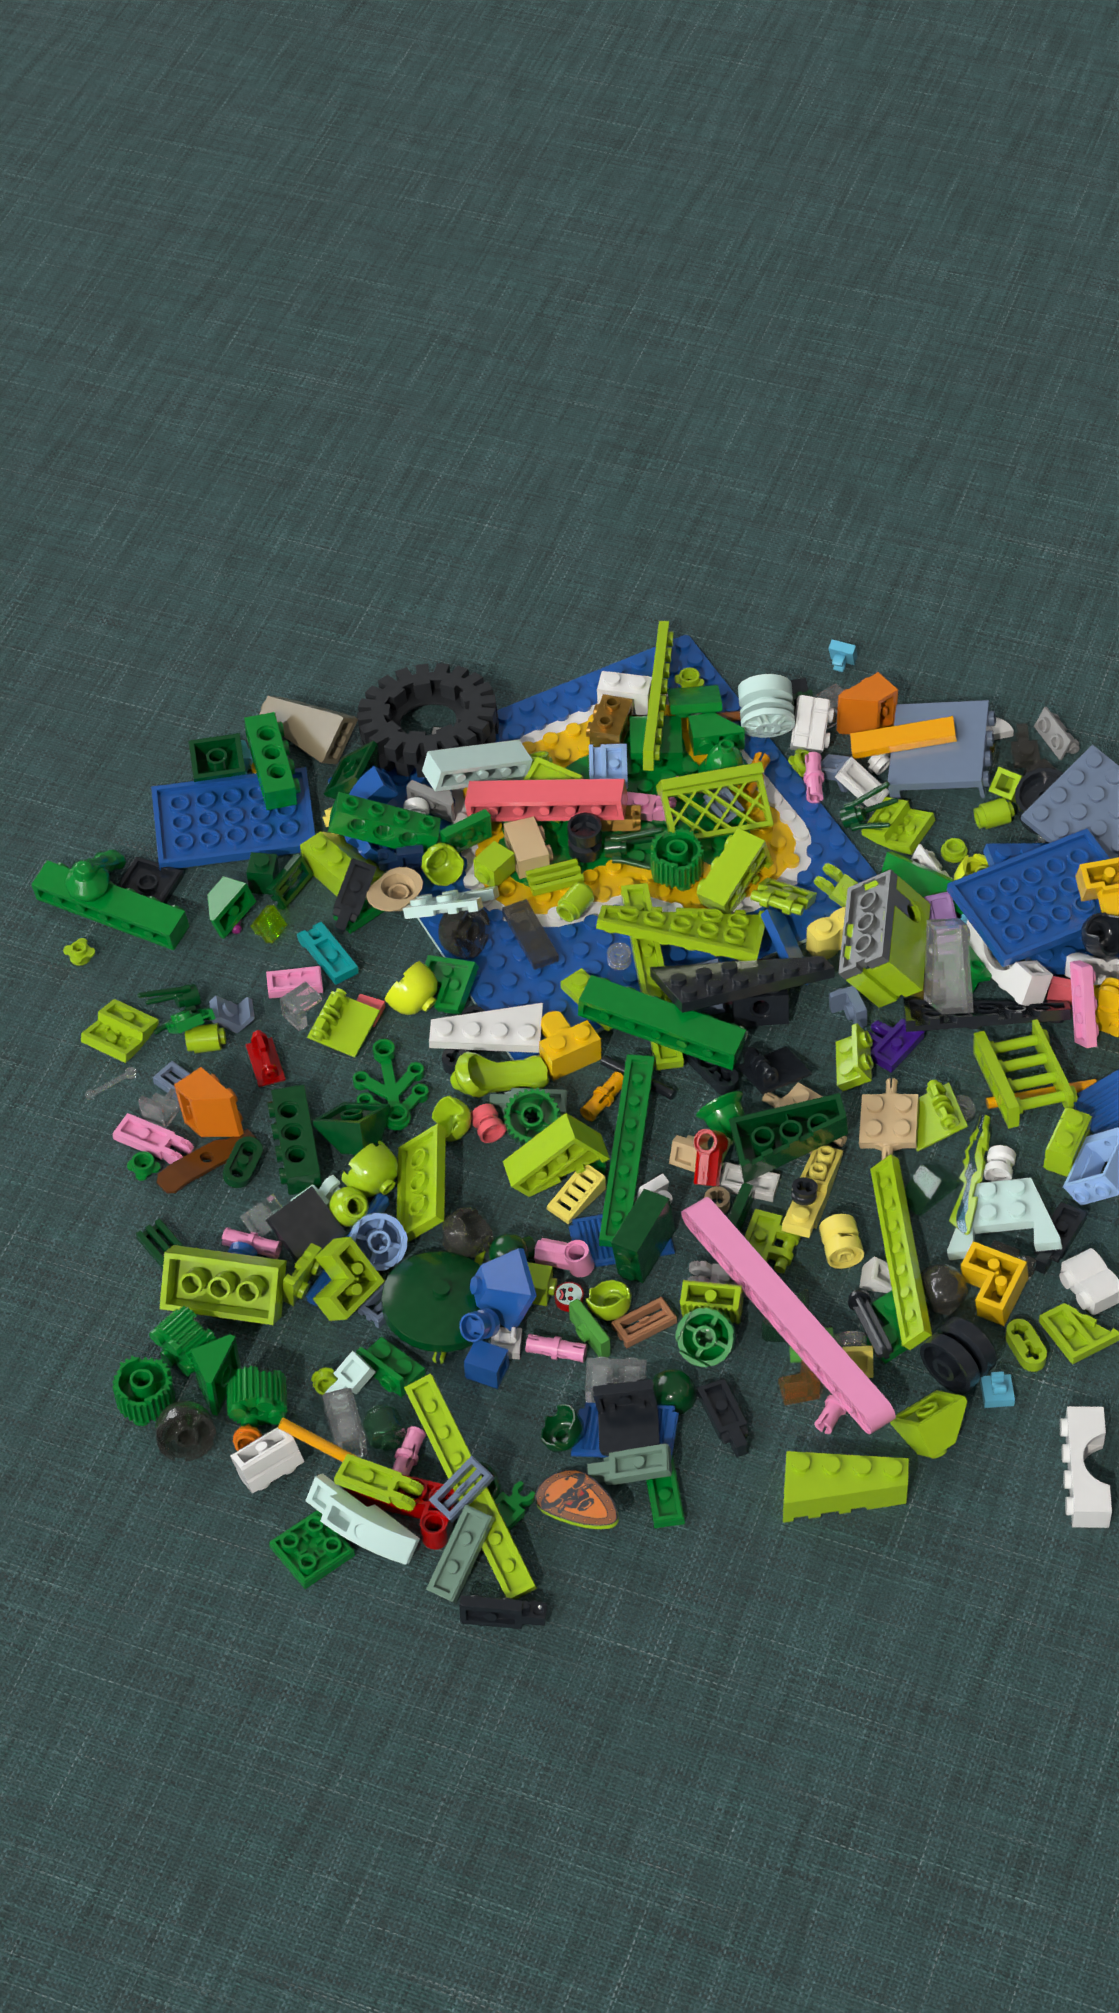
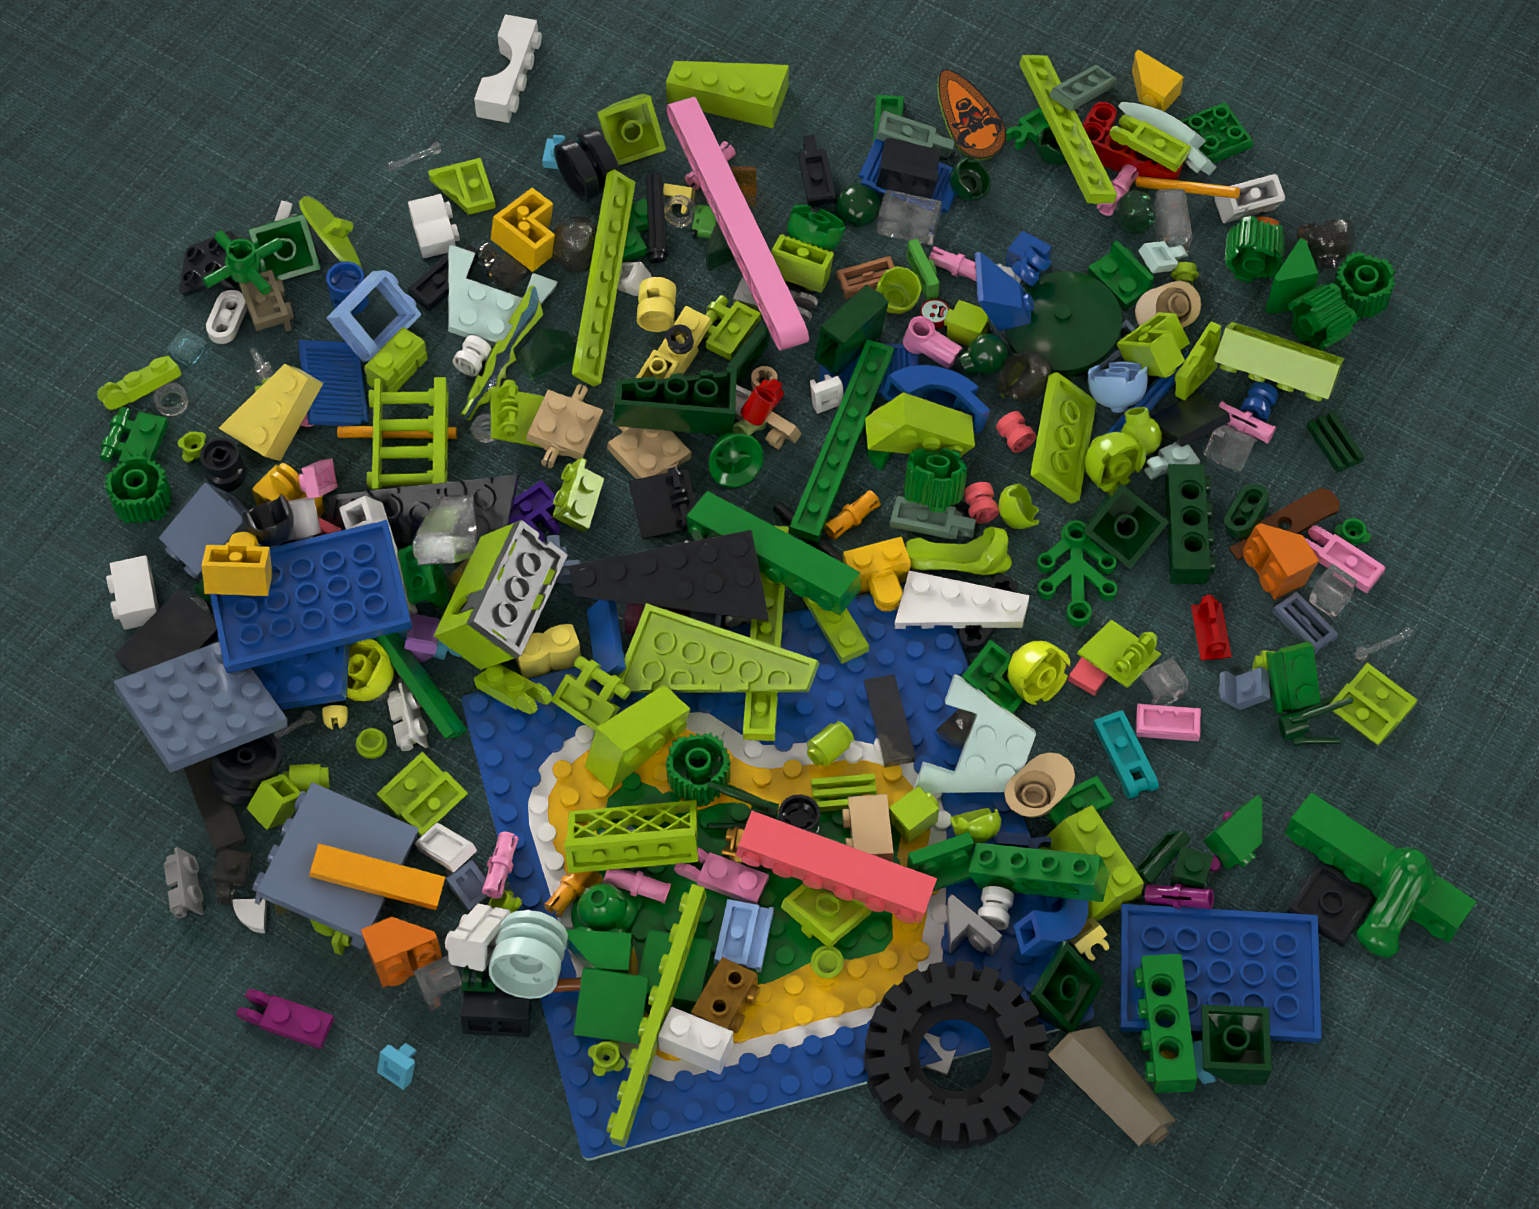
camera: 170 degrees left, 10 degrees up
(79, 952) = (1411, 823): lime plate -> none
(269, 924) = (1189, 802): clear neon green tile -> none
(283, 856) = (1179, 896): none -> magenta pin
(332, 1336) = (1173, 297): none -> tan piece
(352, 893) = (1089, 789): black hinge -> none
(382, 1586) = (1155, 82): none -> yellow slope
(465, 1189) = (1013, 428): none -> coral wheel
(470, 1496) = (1075, 117): sand blue tile -> none
(485, 762) = (909, 945): light aqua brick -> none
(501, 1612) = (1054, 44): black hinge -> none
(553, 1211) = (940, 387): none -> blue arch
(854, 815) = (468, 806): dark green plant -> none
(939, 672) = (288, 1019): none -> magenta hinge
(1021, 1348) = (511, 188): lime beam -> none

